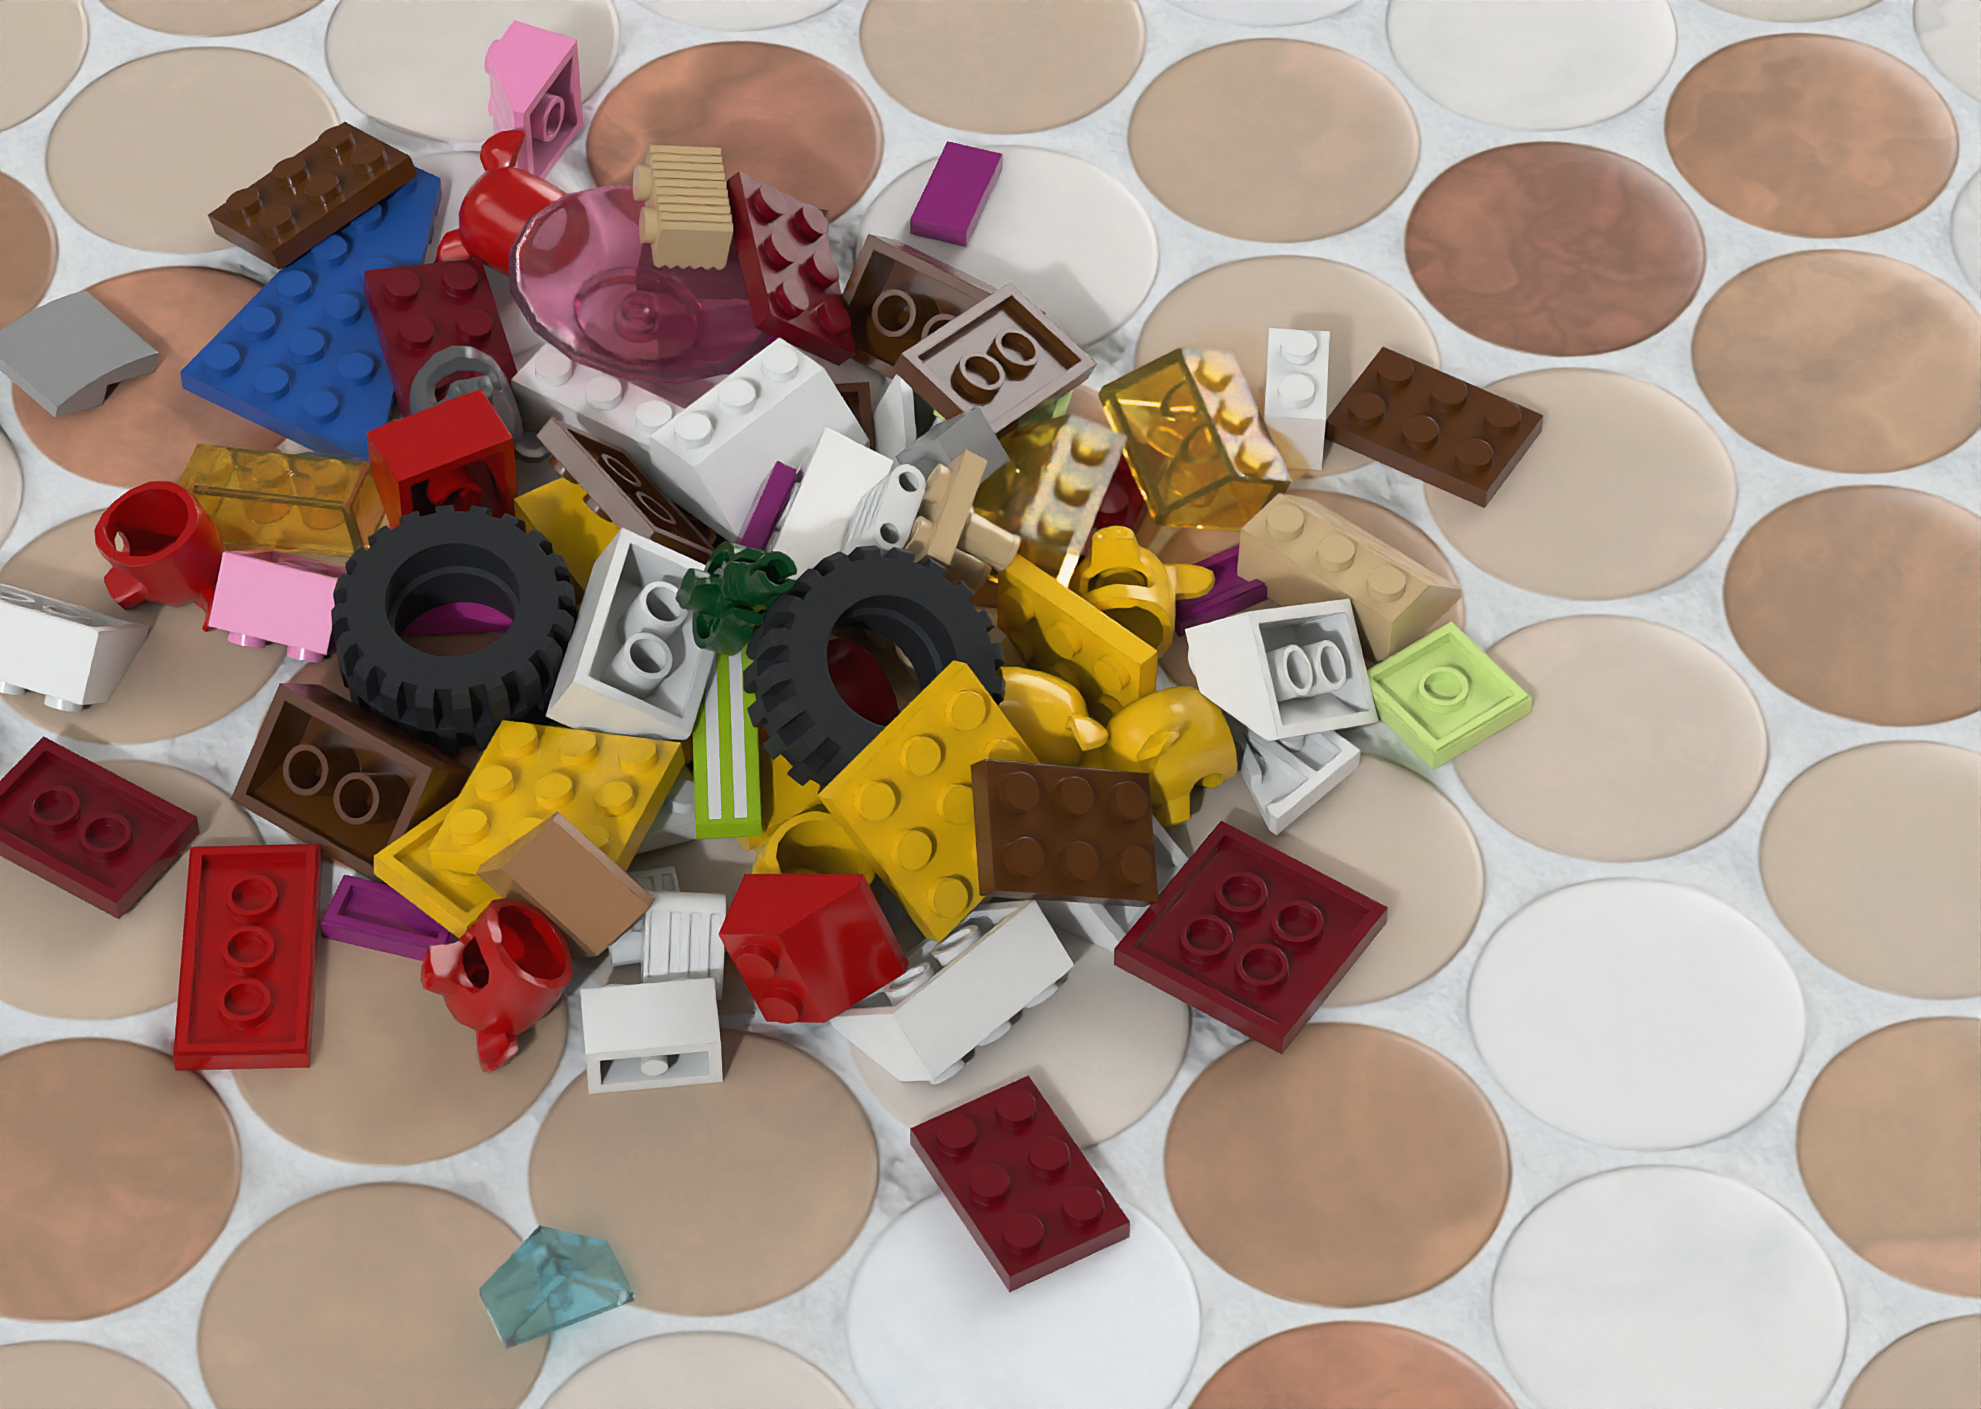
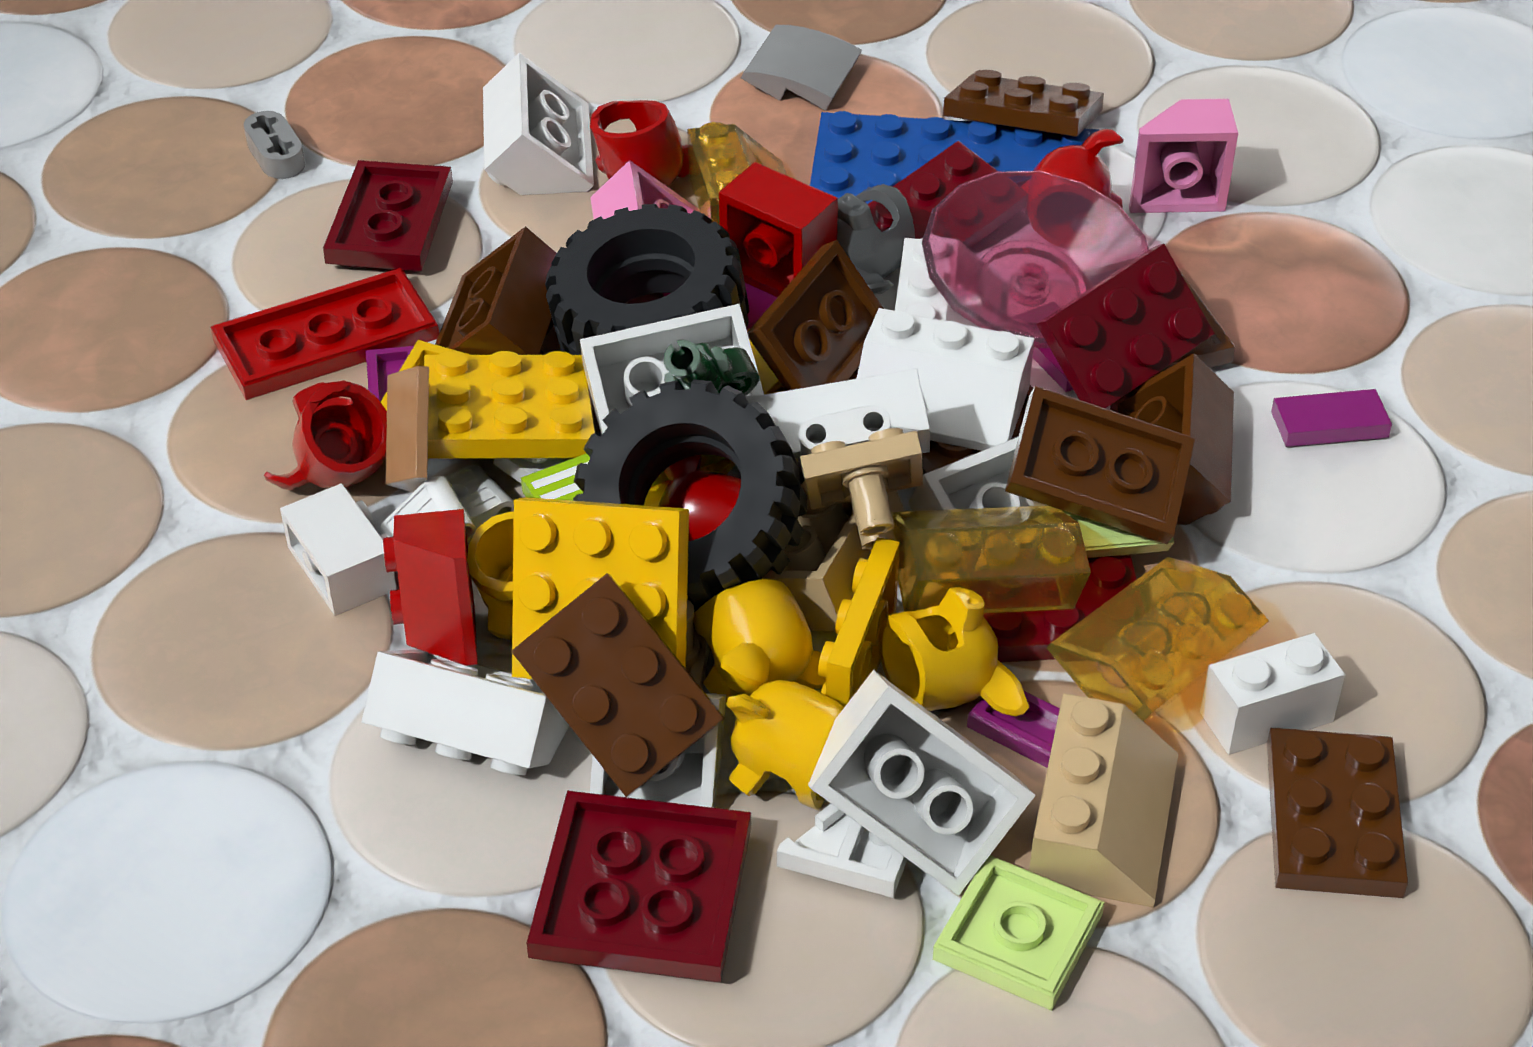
camera: 65 degrees right, 5 degrees down
(553, 1284) = (86, 591): clear light blue slope -> none
(684, 206) = (1114, 234): tan brick -> none
(950, 438) = (971, 469): light grey brick -> none
(1019, 1183) = (302, 828): dark red plate -> none

